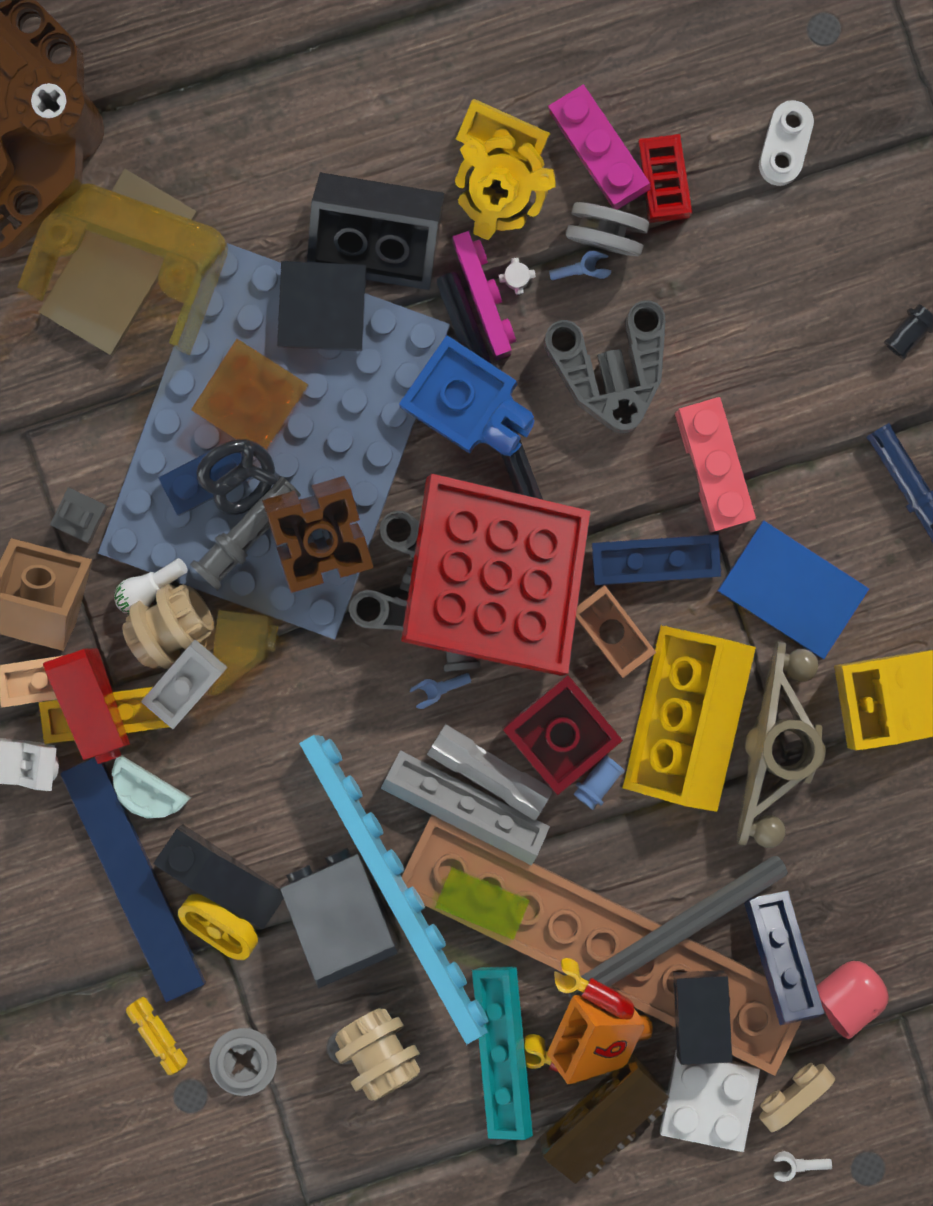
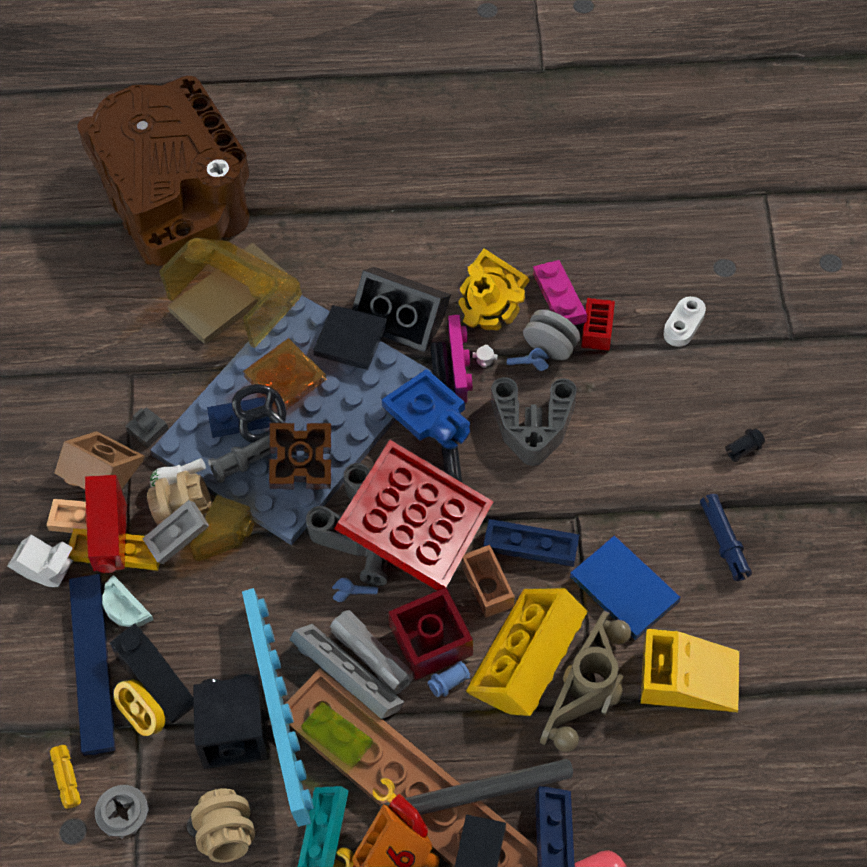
camera: 15 degrees right, 30 degrees down
(716, 464) = (589, 491): coral arch -> none

